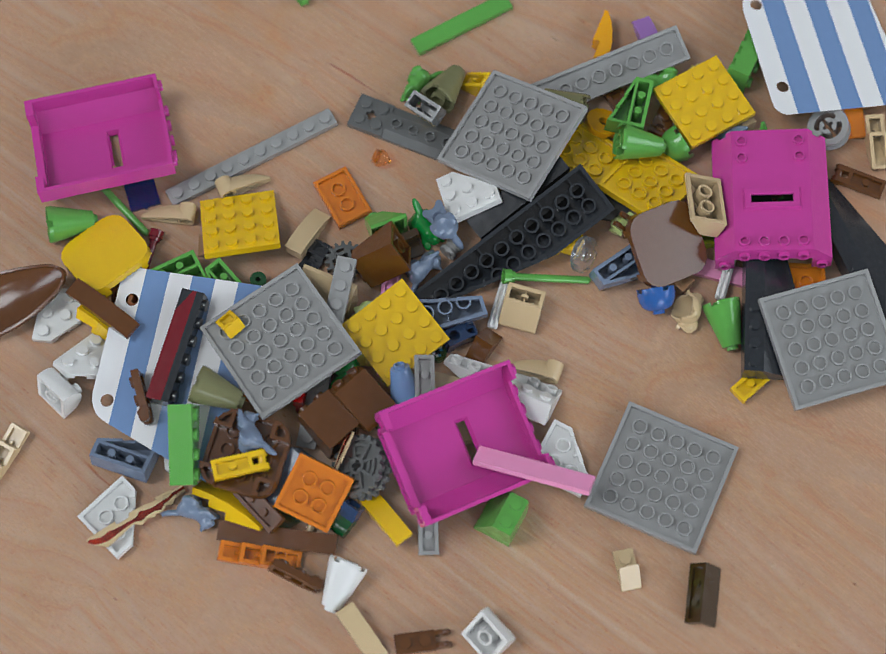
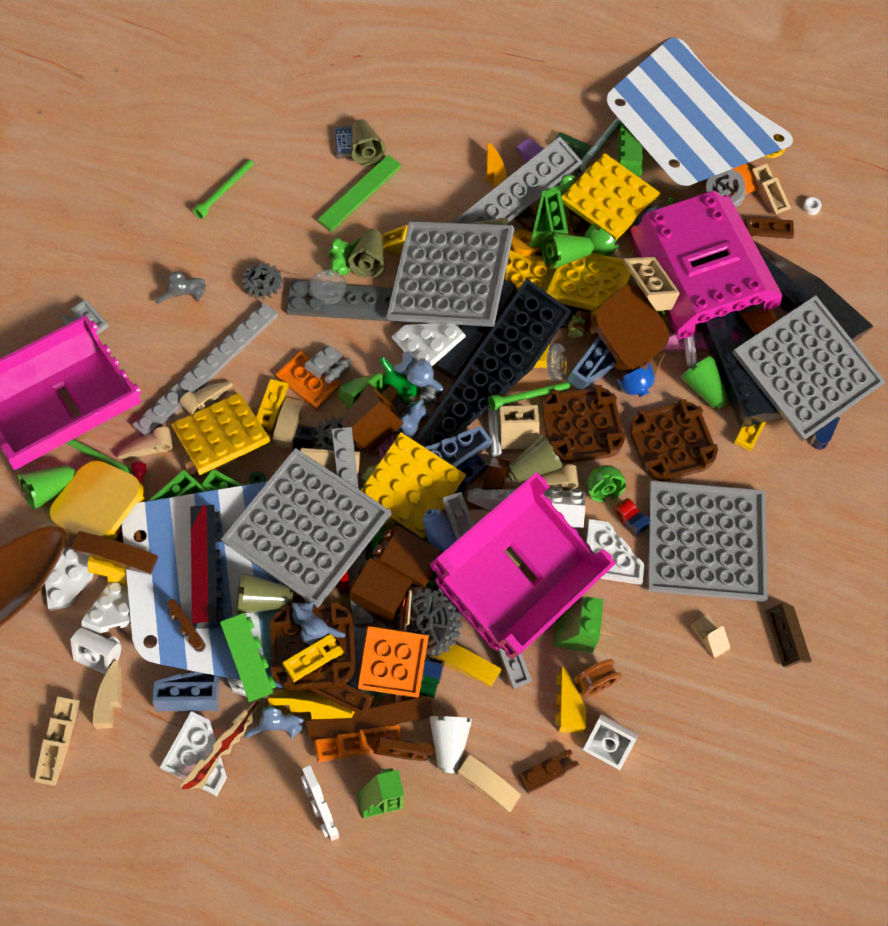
camera: 25 degrees left, 5 degrees down
(55, 437) = (108, 696): none -> tan slope
(142, 195) = (109, 436): clear blue piece -> none
(162, 70) = (85, 308): none -> light grey plate
(201, 597) = (318, 804): none -> white plate
(230, 324) = (251, 526): yellow slope -> none
(255, 68) = (179, 286): none -> dark grey animal
(261, 609) = (381, 794): none -> bright green wedge
(299, 210) = (272, 403): none -> yellow plate
(342, 82) = (262, 280): none -> dark grey gear
(364, 183) = (324, 361): none -> light grey plate
(380, 158) = (331, 333): clear orange plate -> none
(391, 111) = (327, 286): none -> clear tile
(428, 110) = (362, 274): dark grey torso -> none
(465, 592) = (571, 707): none -> yellow slope
(498, 572) = (597, 678): none -> dark orange wheel
(524, 345) = (536, 458): none -> olive cone
(534, 470) = (597, 568): bright pink tile -> none
(583, 388) = (605, 482): none -> bright green cylinder
(587, 324) = (583, 424): none -> reddish brown tile
(597, 430) = (631, 517): none -> leg
(669, 368) = (673, 441): none -> reddish brown tile
(687, 311) = (669, 384): tan hair -> none
(689, 38) = (575, 142): none -> clear green tile
(695, 57) = (597, 146): none -> light aqua piece
(821, 412) = (823, 436): none -> dark blue leg

